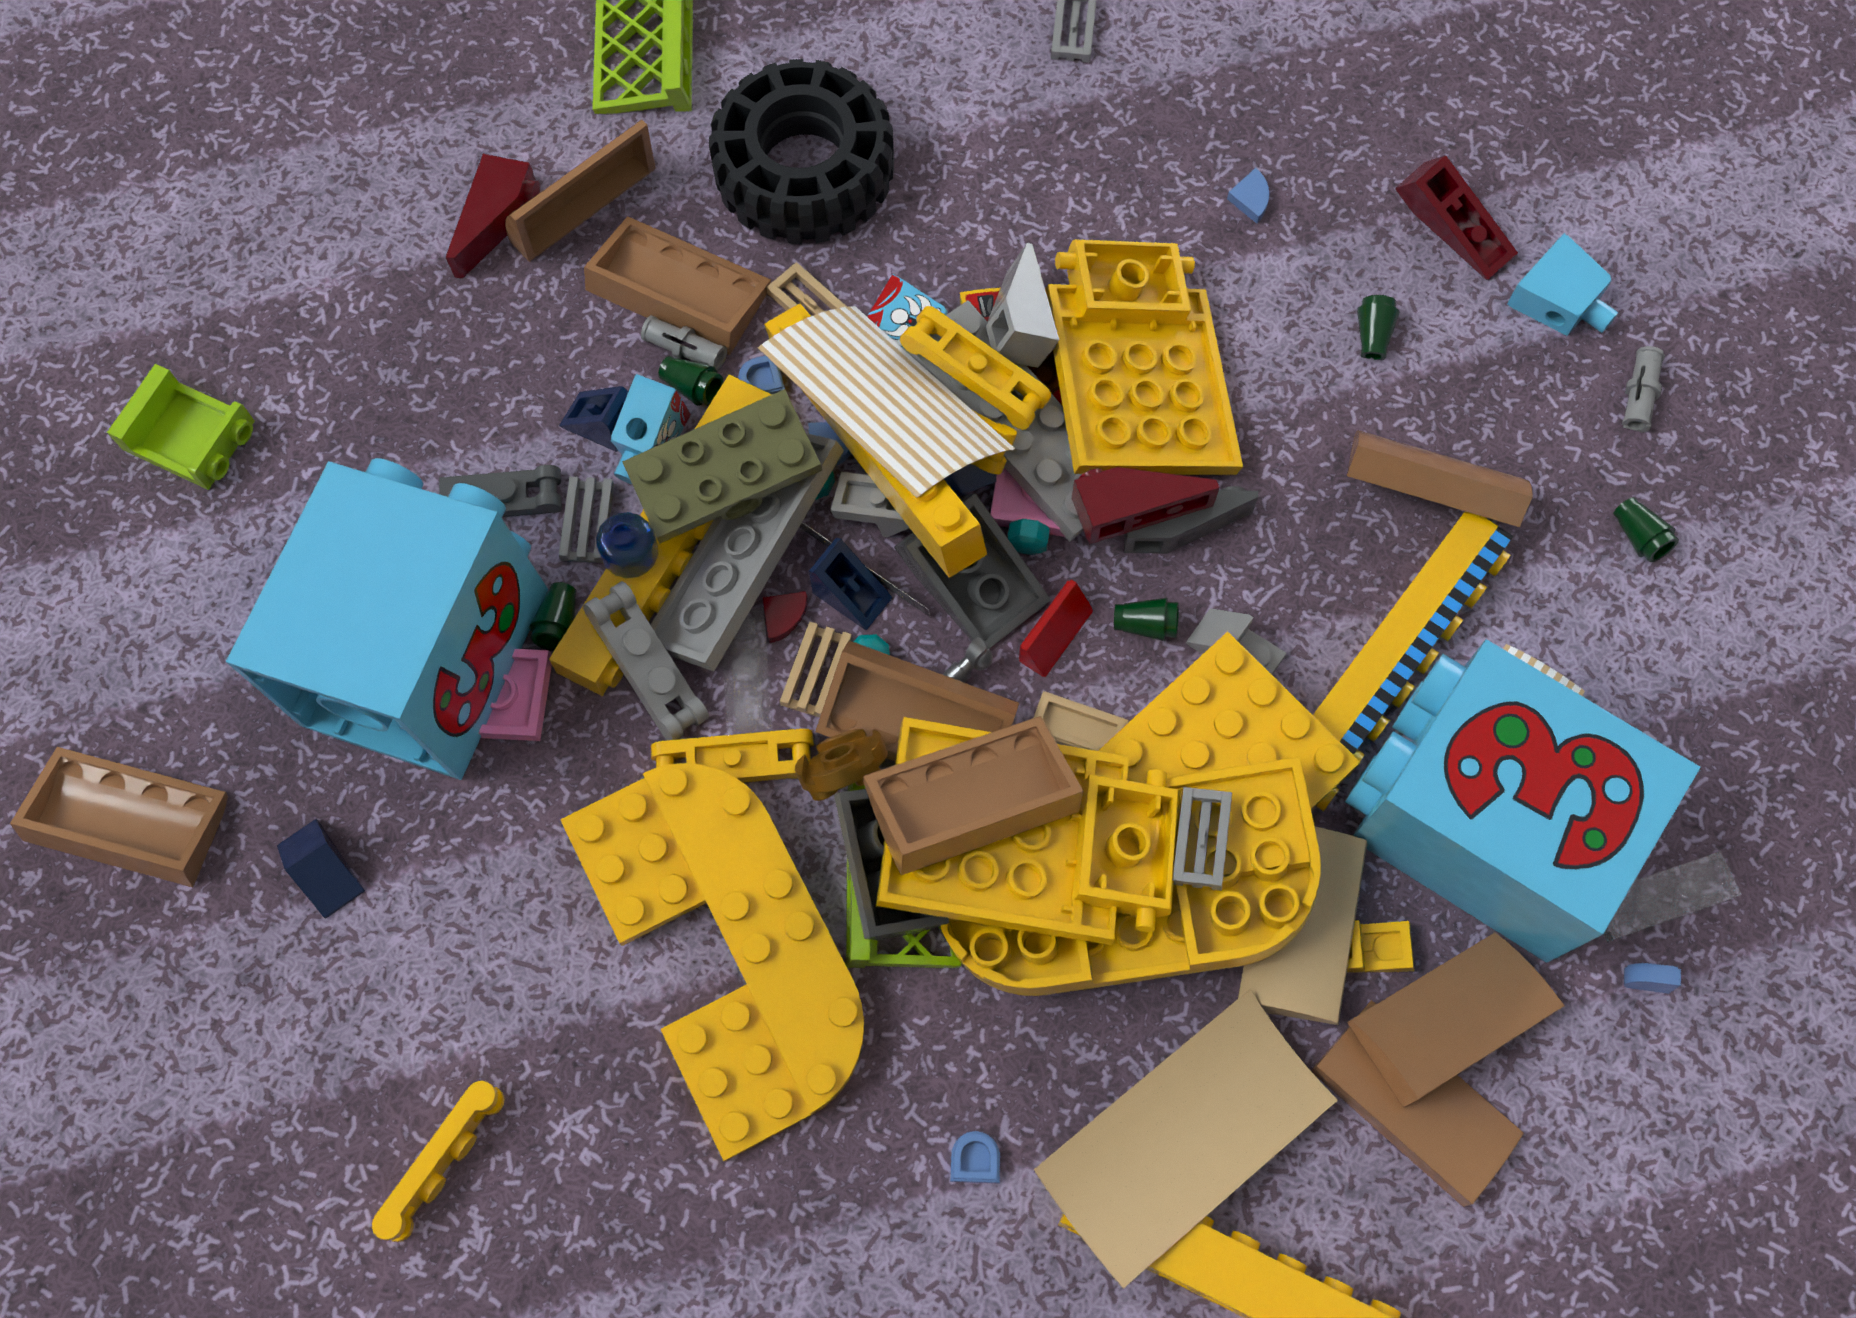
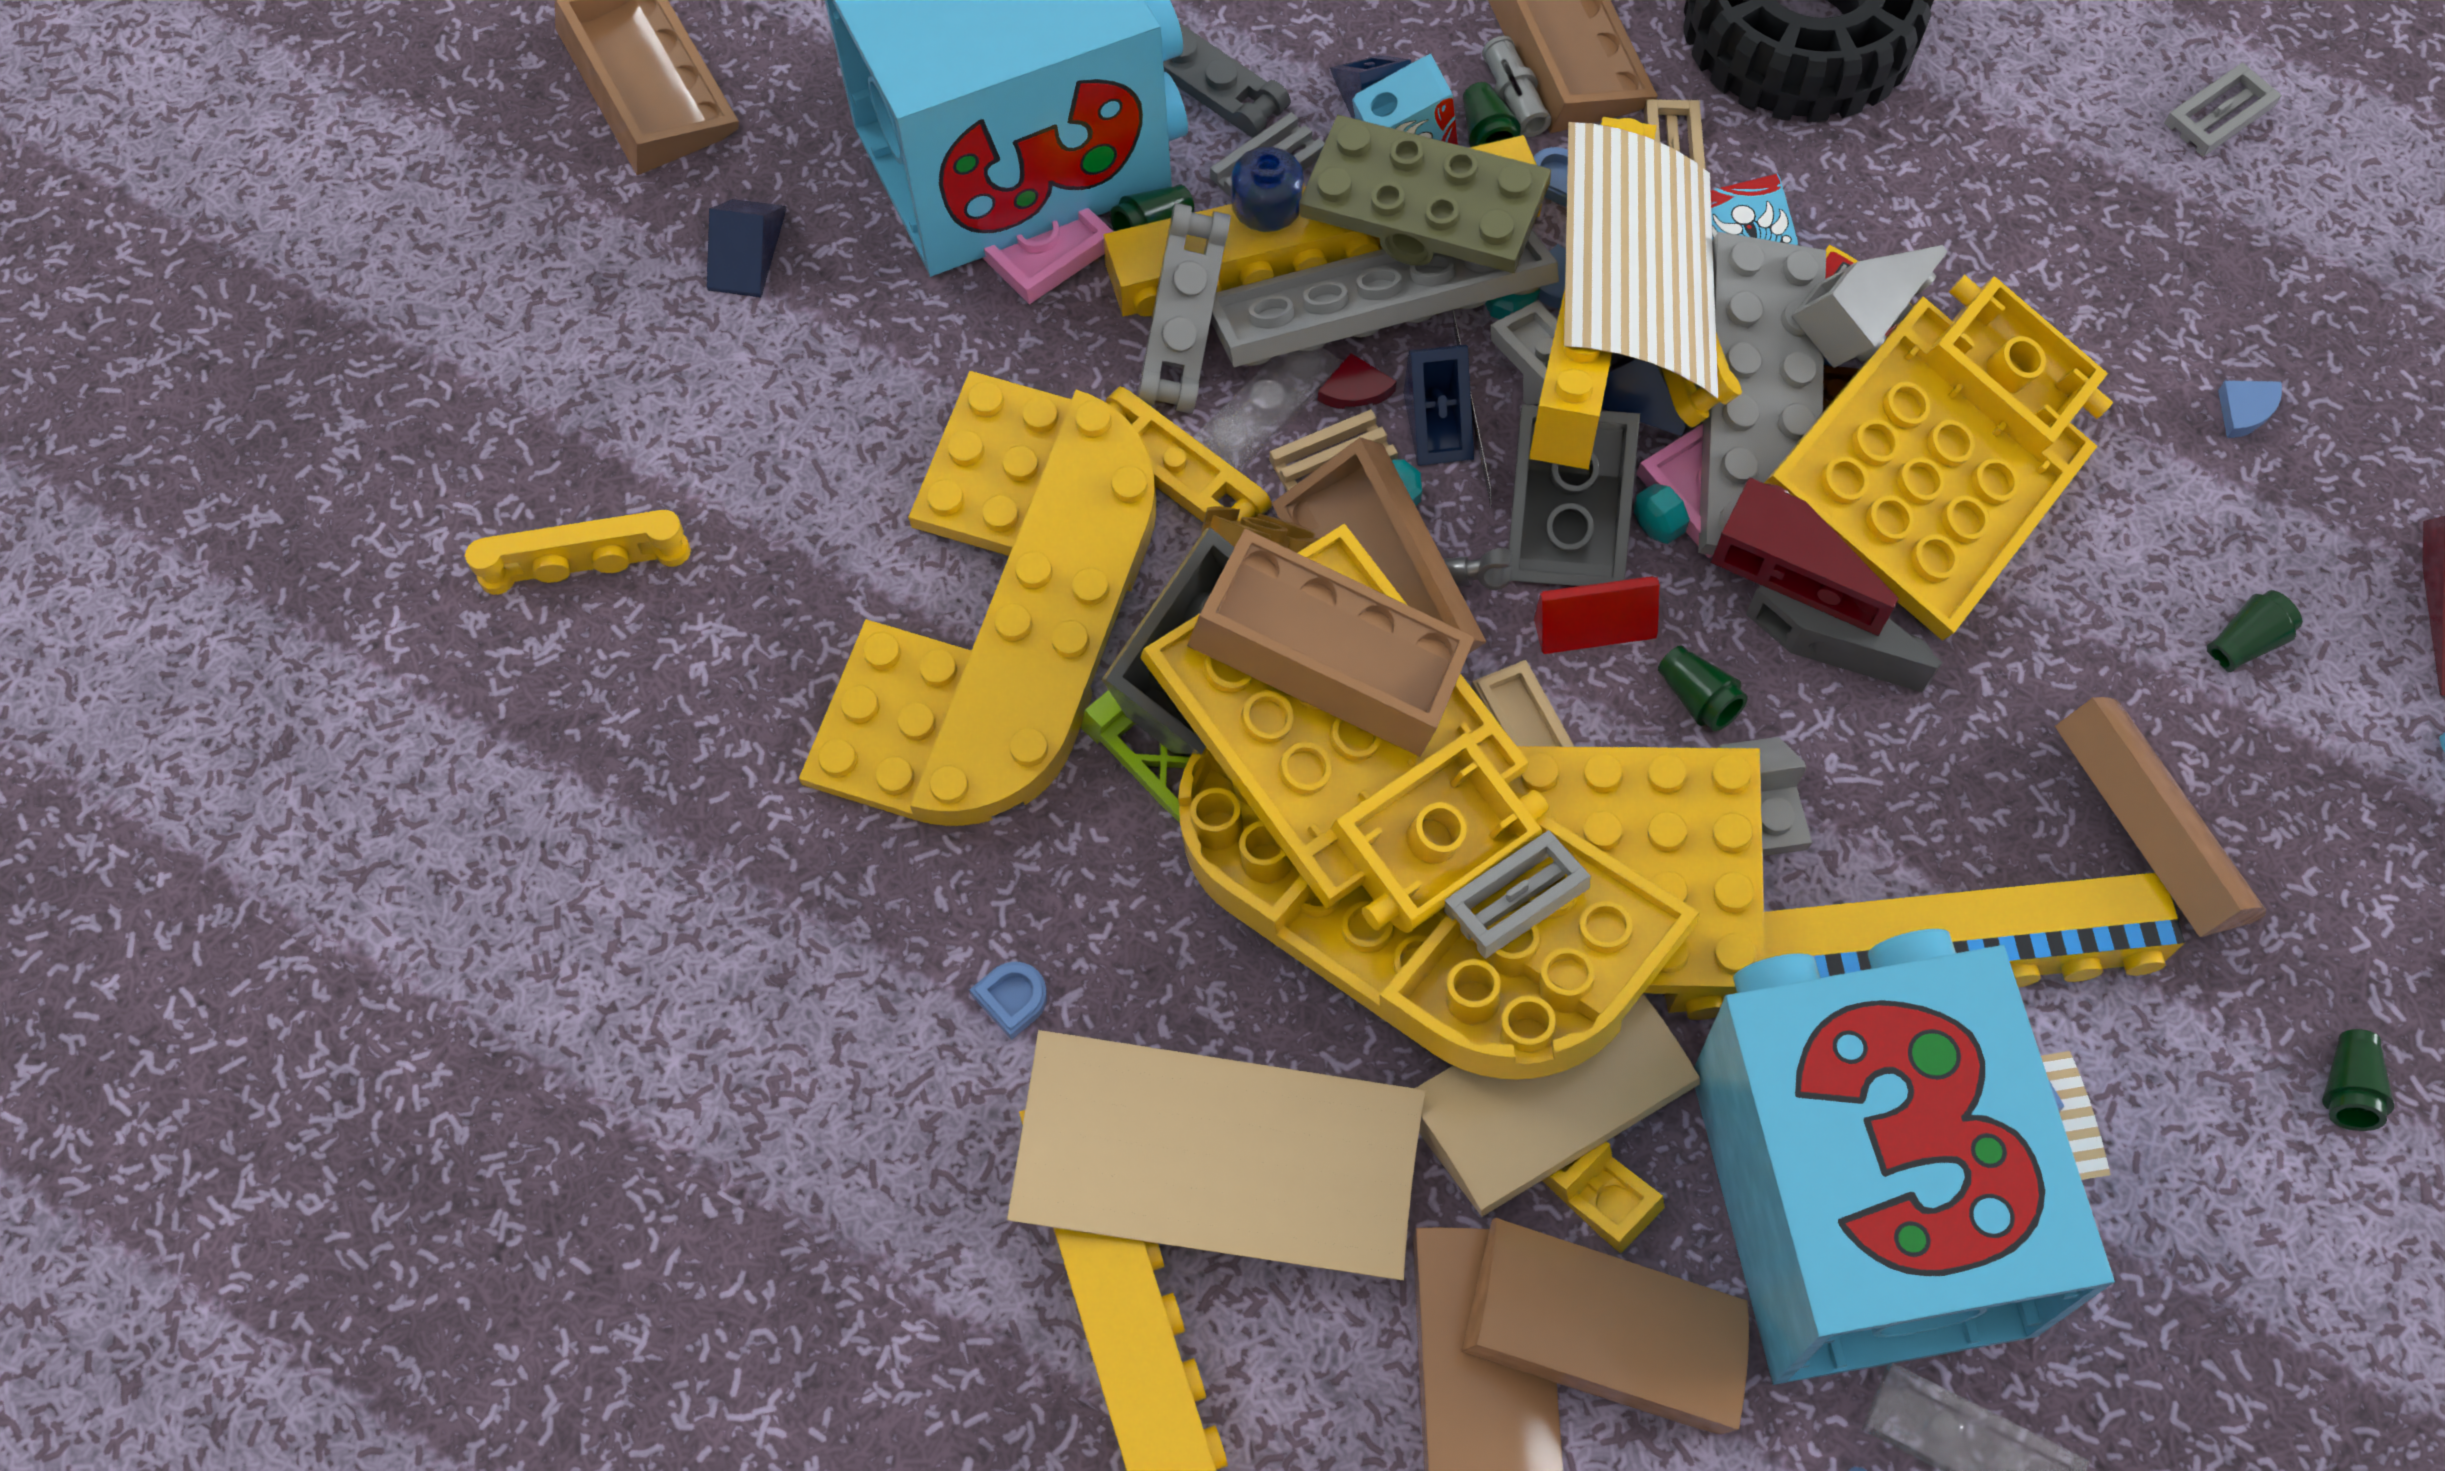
camera: 45 degrees right, 5 degrees down
(976, 366) = (1764, 305): yellow plate -> none

